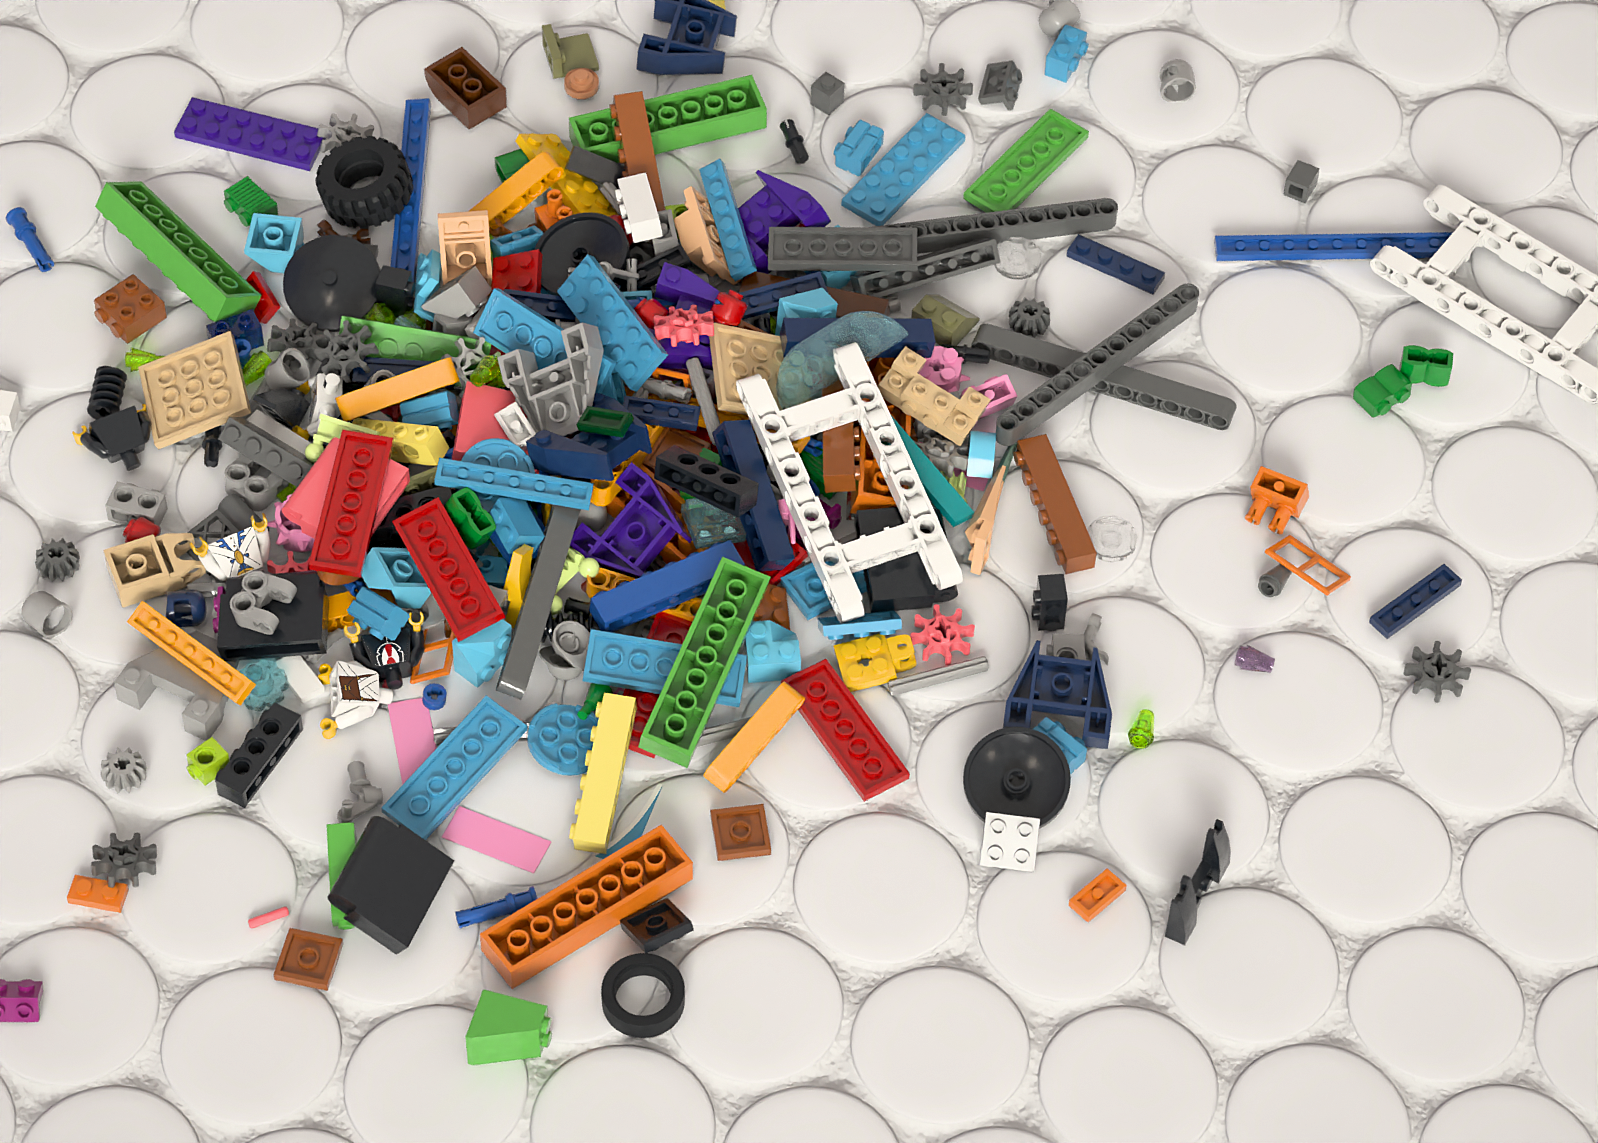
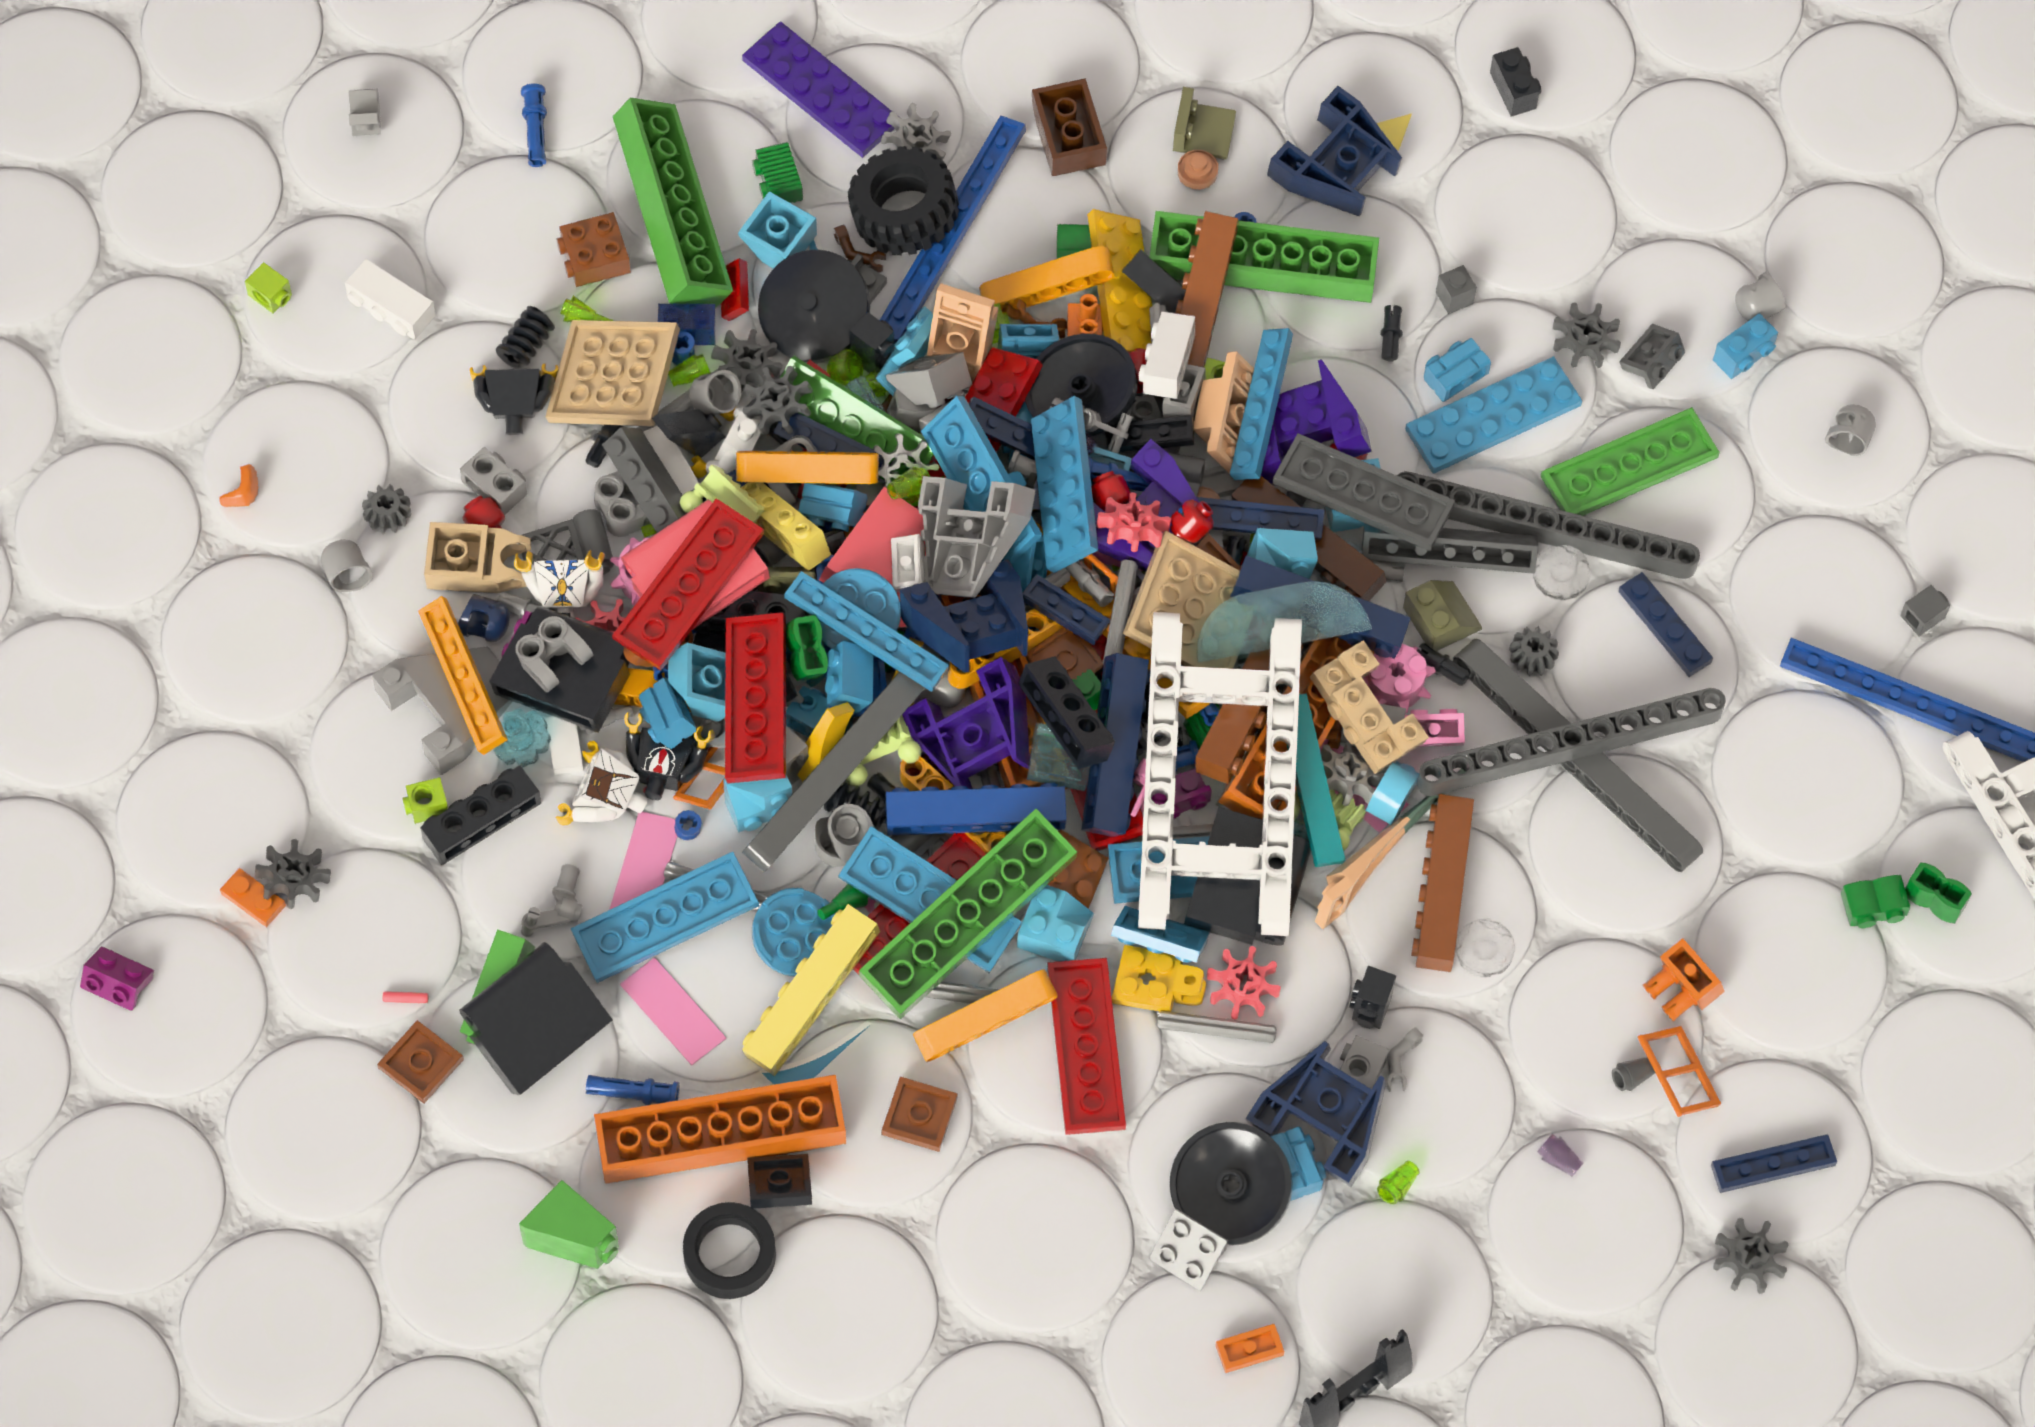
camera: 25 degrees right, 10 degrees up
(123, 770) = (329, 772): light grey gear -> none
(605, 421) = (990, 602): dark green tile -> none

